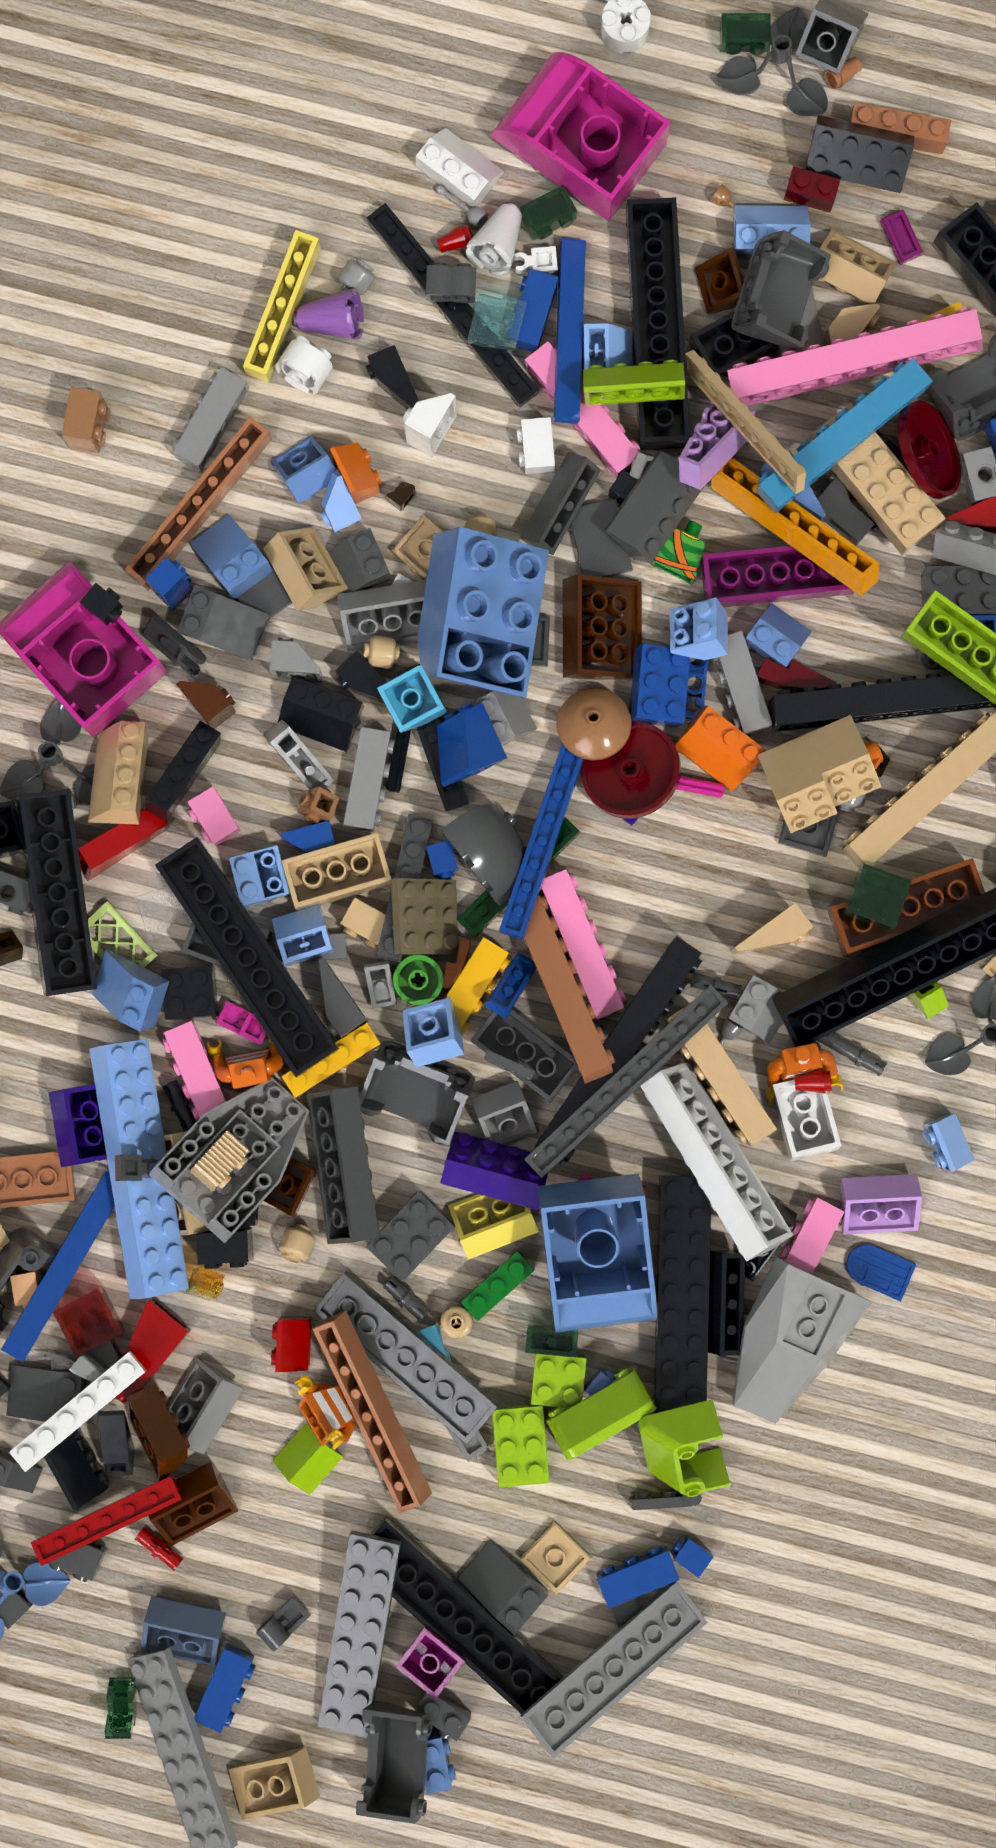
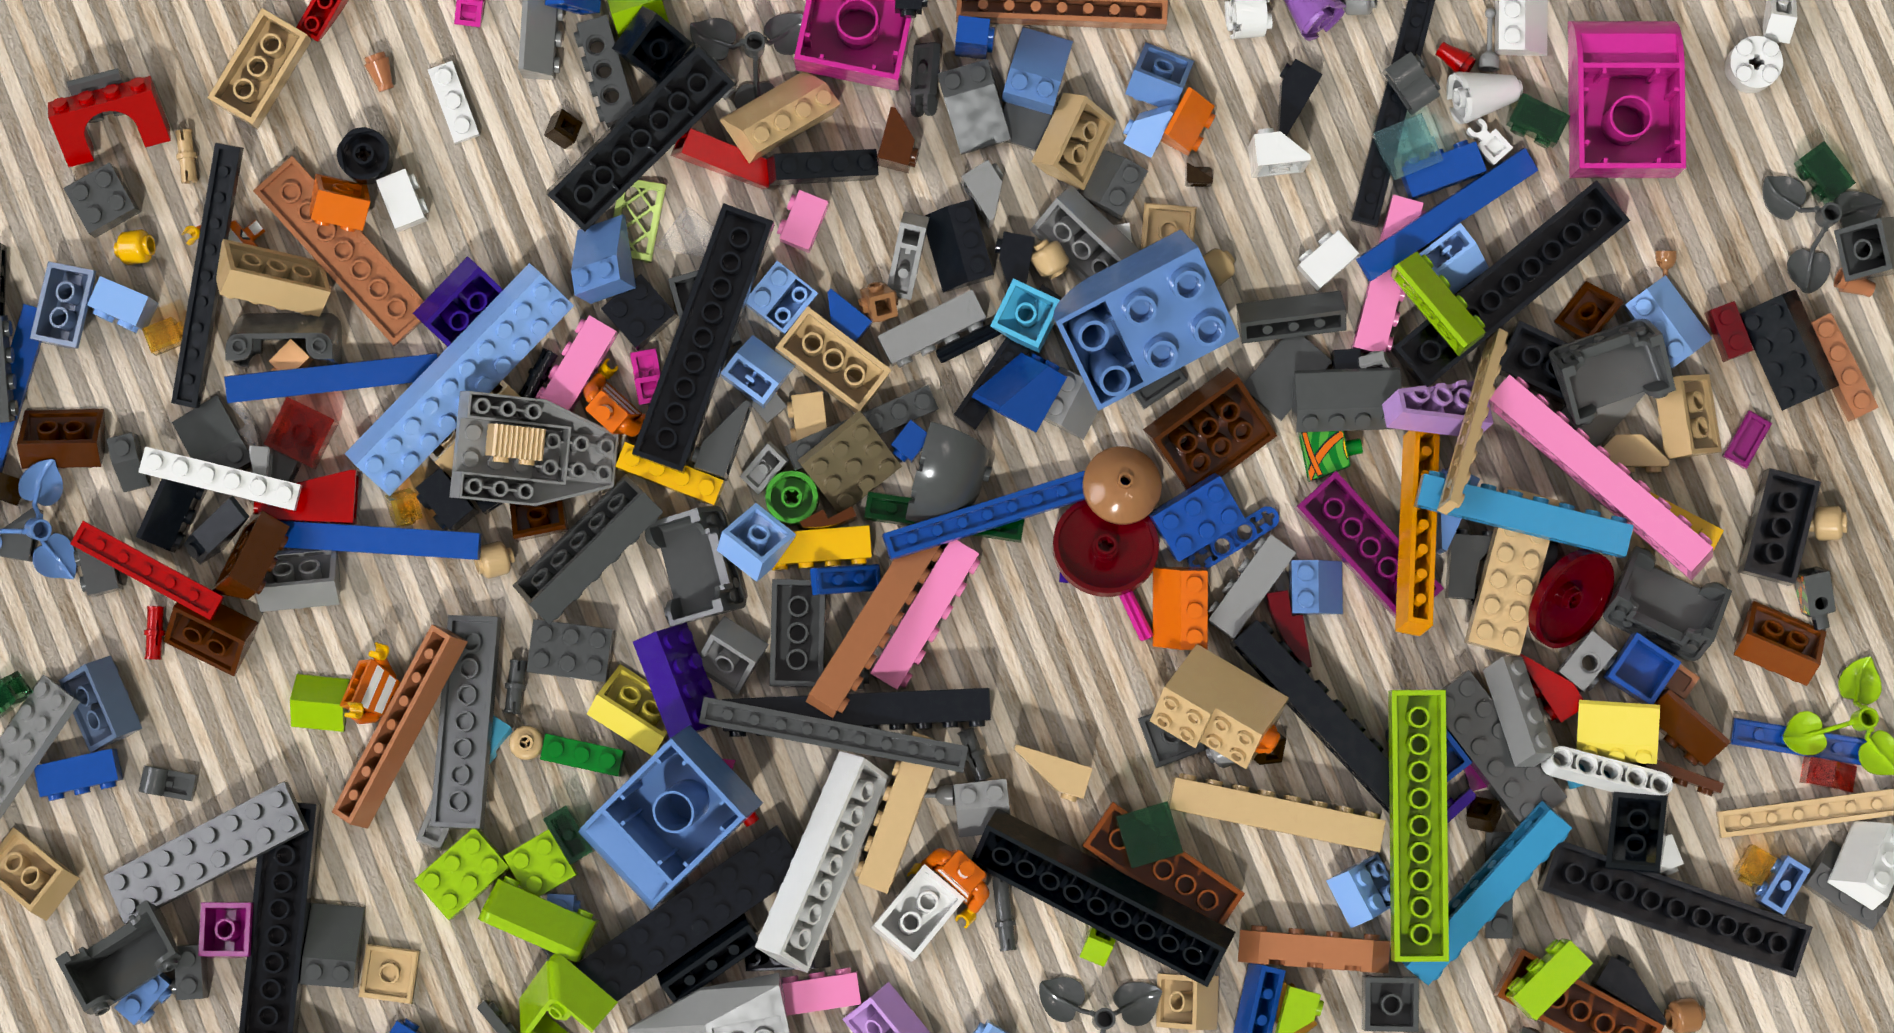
camera: 50 degrees right, 0 degrees up
(132, 1167) = (455, 373): dark grey plate -> none
(219, 1318) = (383, 540): none -> blue tile
(292, 1344) = (407, 617): red slope -> none
(508, 1065) = (773, 625): dark grey tile -> none
(699, 630) = (1268, 516): light blue slope -> none
(816, 1081) = (952, 897): red cone -> none

